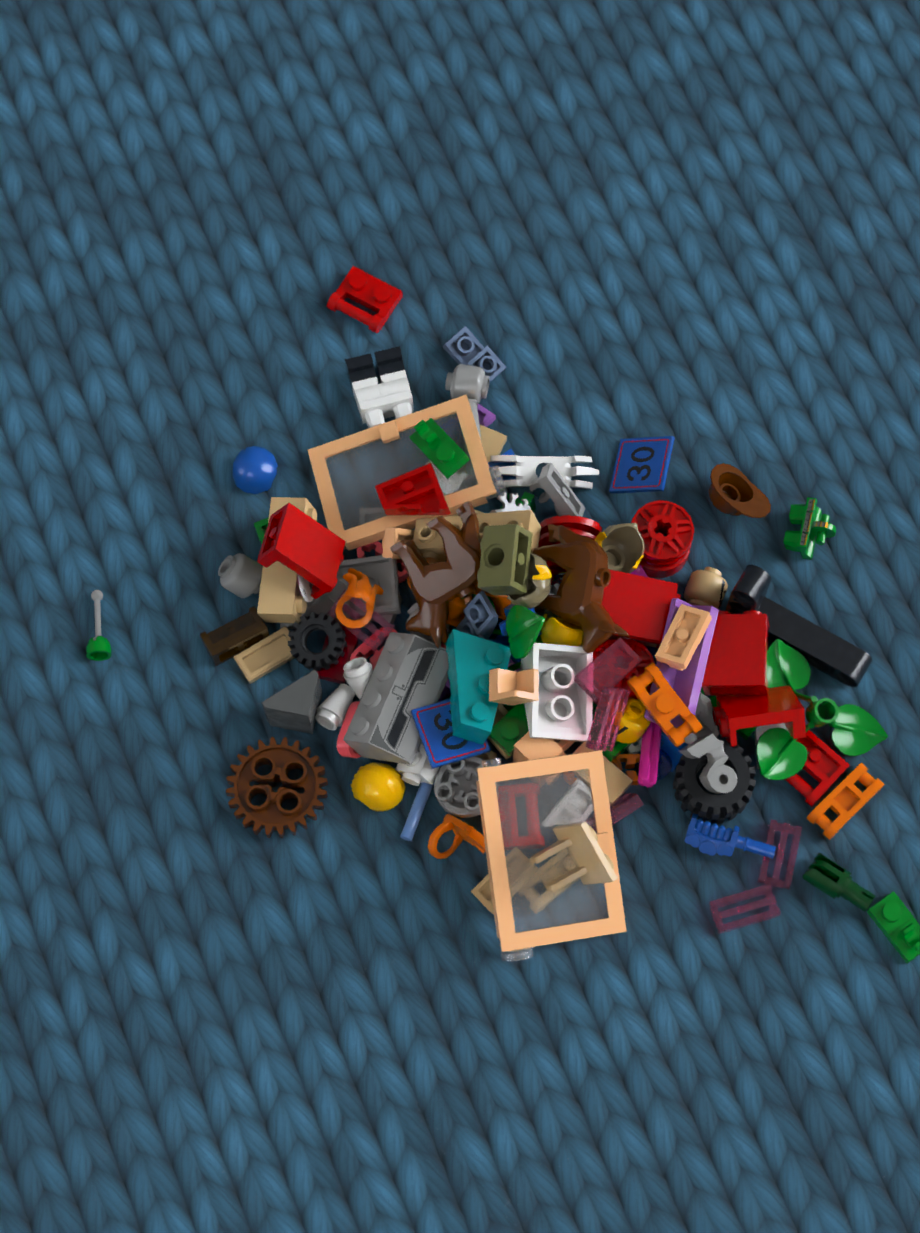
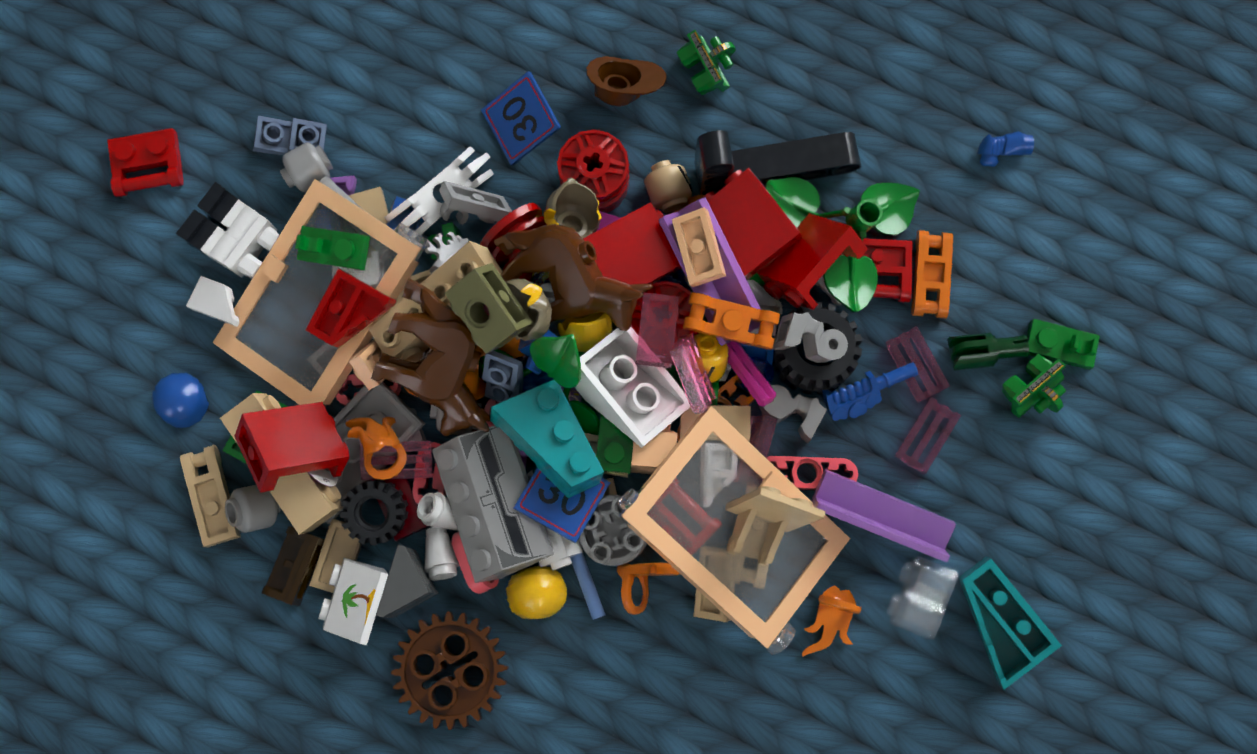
camera: 40 degrees left, 10 degrees up
(98, 647) = (178, 679): green hinge -> none
(218, 545) = (208, 496): none -> tan plate
(259, 682) = (353, 600): none -> white slope
(332, 423) = (214, 301): none -> white tile
(513, 687) = (590, 414): light nougat panel -> none
(569, 971) = (834, 614): none -> orange piece
(641, 1012) = (922, 597): none -> clear brick
(656, 804) = (785, 405): none -> light grey leg
(657, 872) = (832, 465): none -> coral beam
(663, 932) = (883, 515): none -> medium lavender panel
(686, 1076) = (1006, 622): none -> teal wedge
(853, 942) = (1041, 392): none -> green hips

